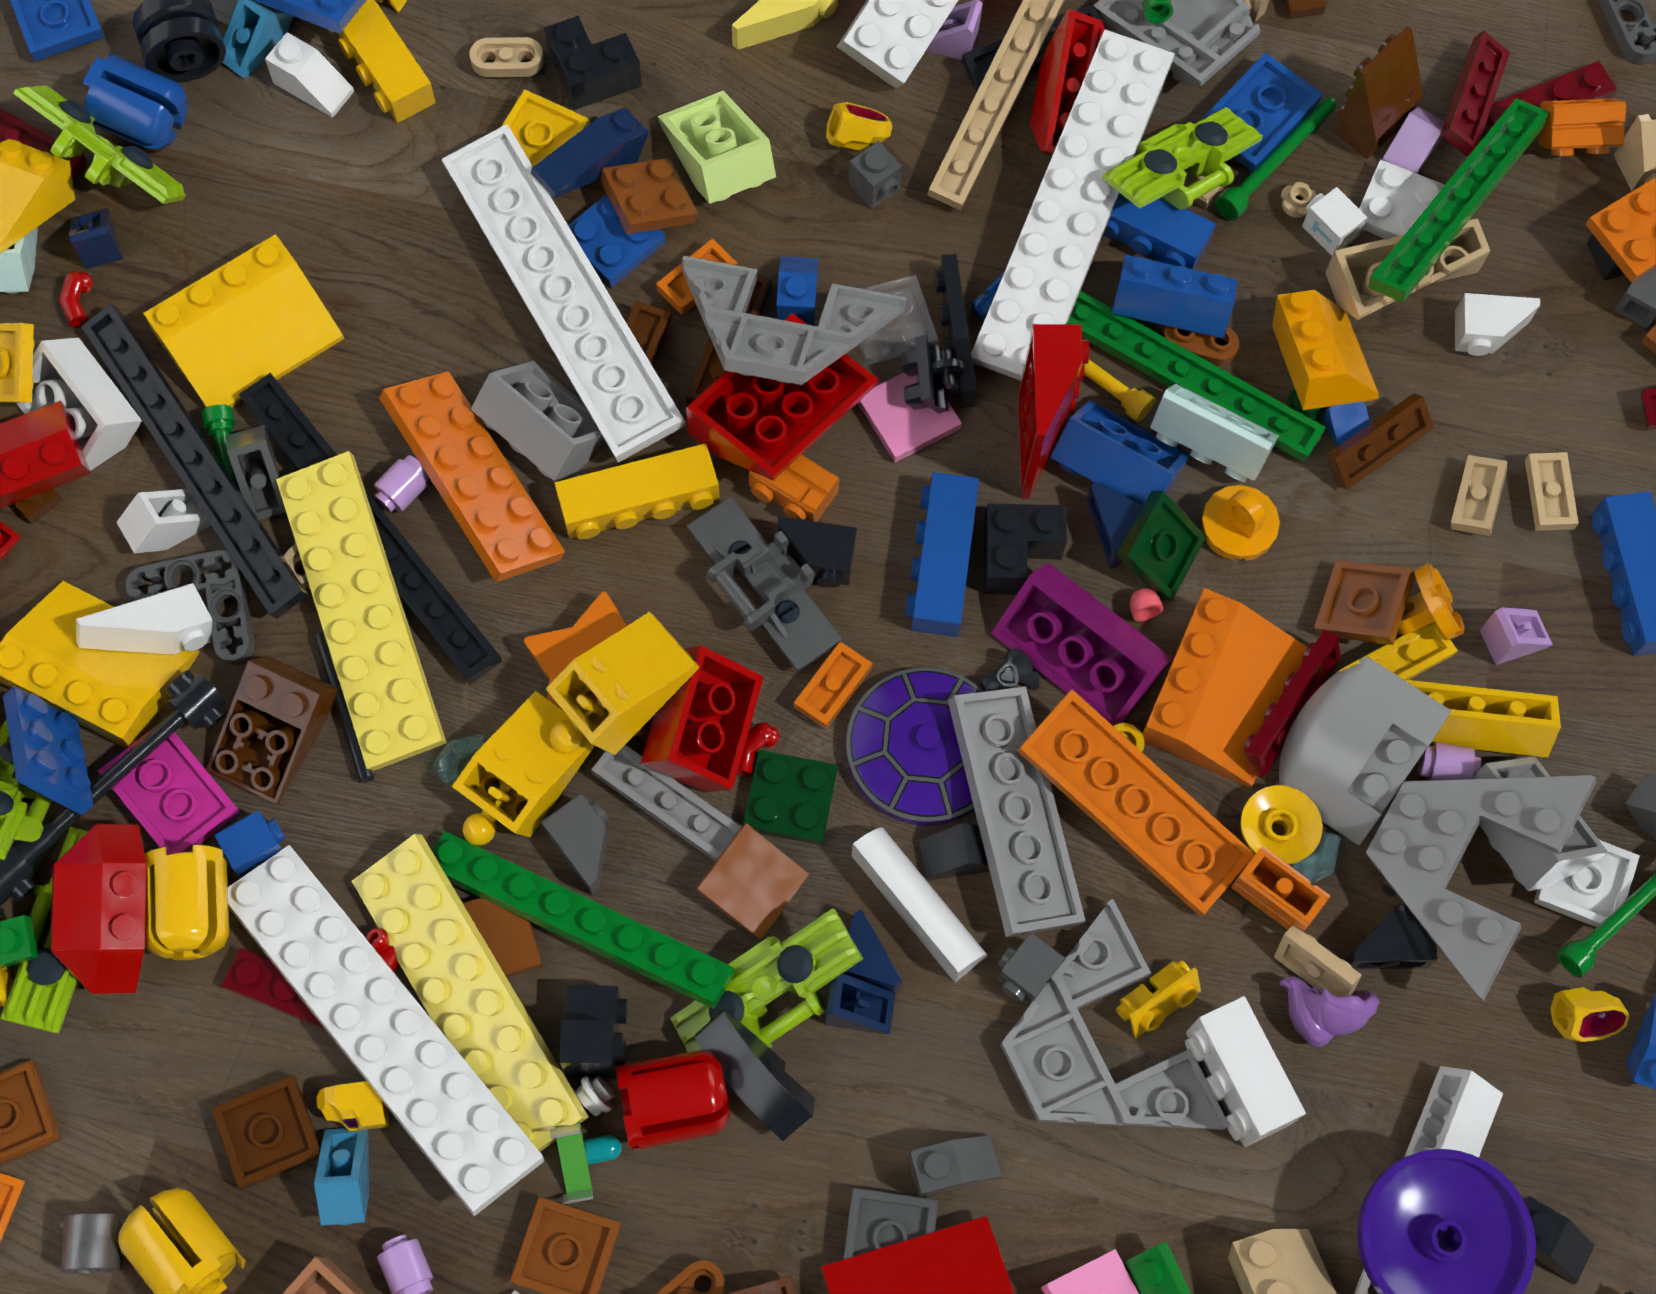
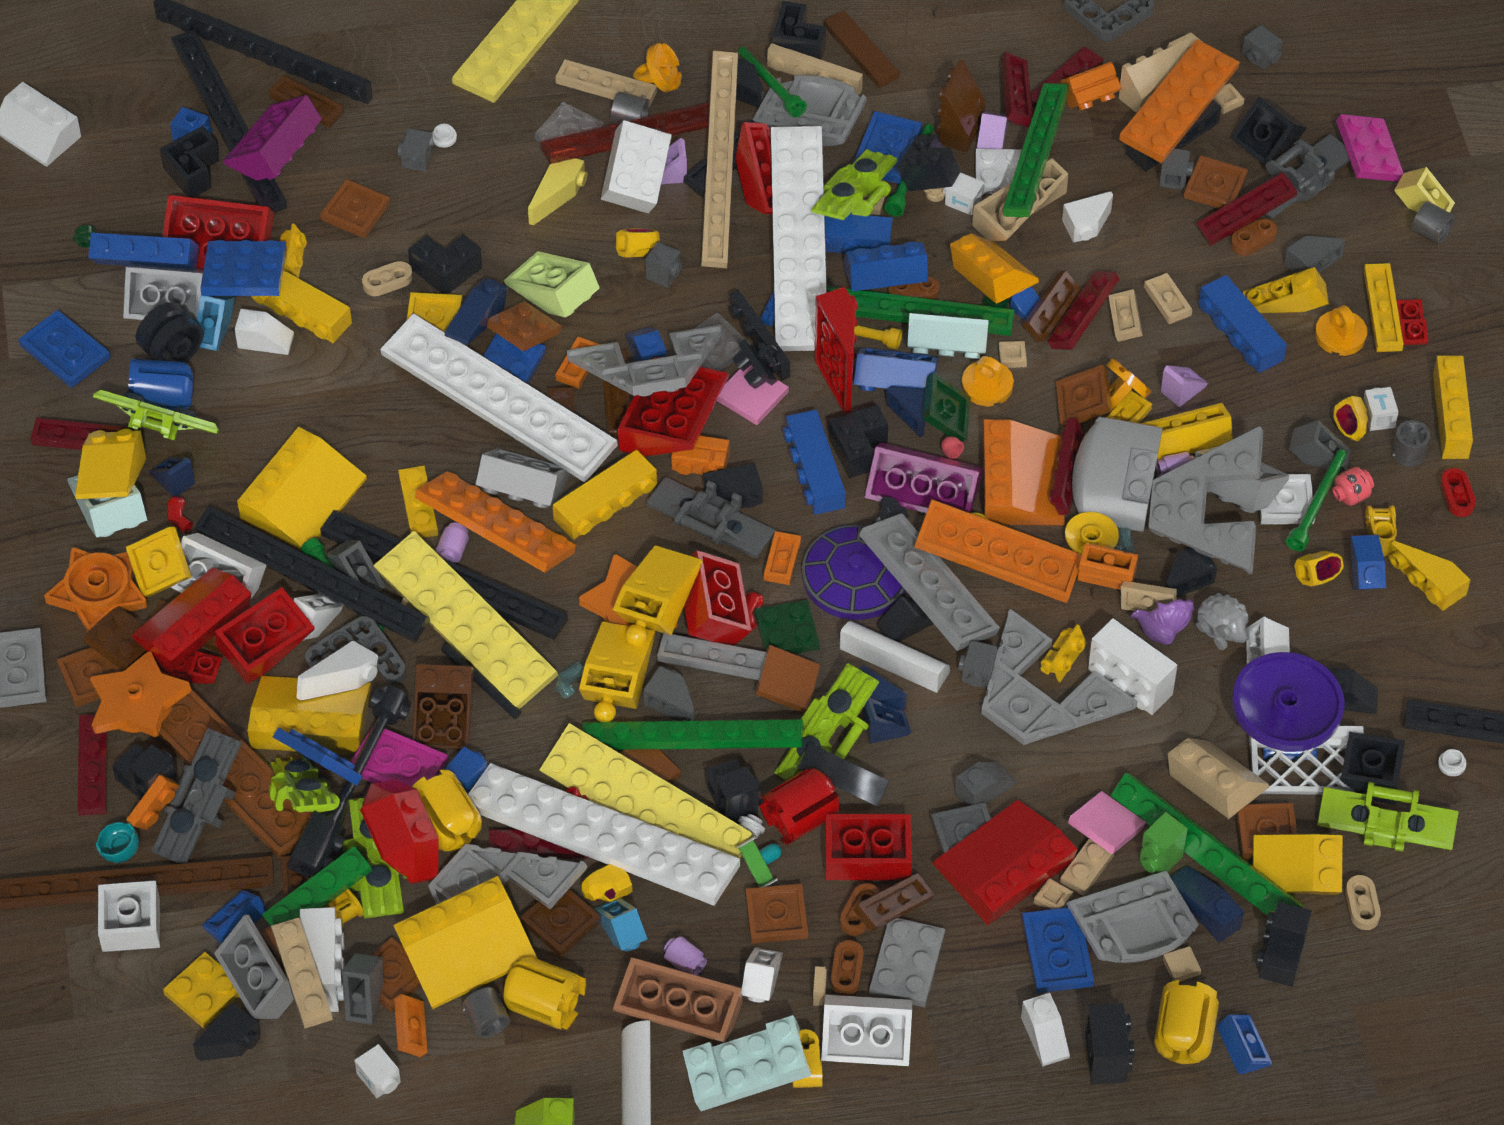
camera: 20 degrees left, 15 degrees down
(77, 528) = (263, 635): none -> red slope
(108, 1126) = (464, 942): none -> yellow slope
(166, 1027) = (540, 877): none -> light grey wing
(379, 433) = (419, 515): none -> yellow plate
(737, 1206) = (868, 846): none -> red brick
(1294, 491) = (1012, 354): none -> tan tile
(1301, 162) = (928, 164): none -> black brick
(1411, 1045) = (1223, 620): none -> light grey animal
(1423, 464) = (1083, 310): none -> dark red plate

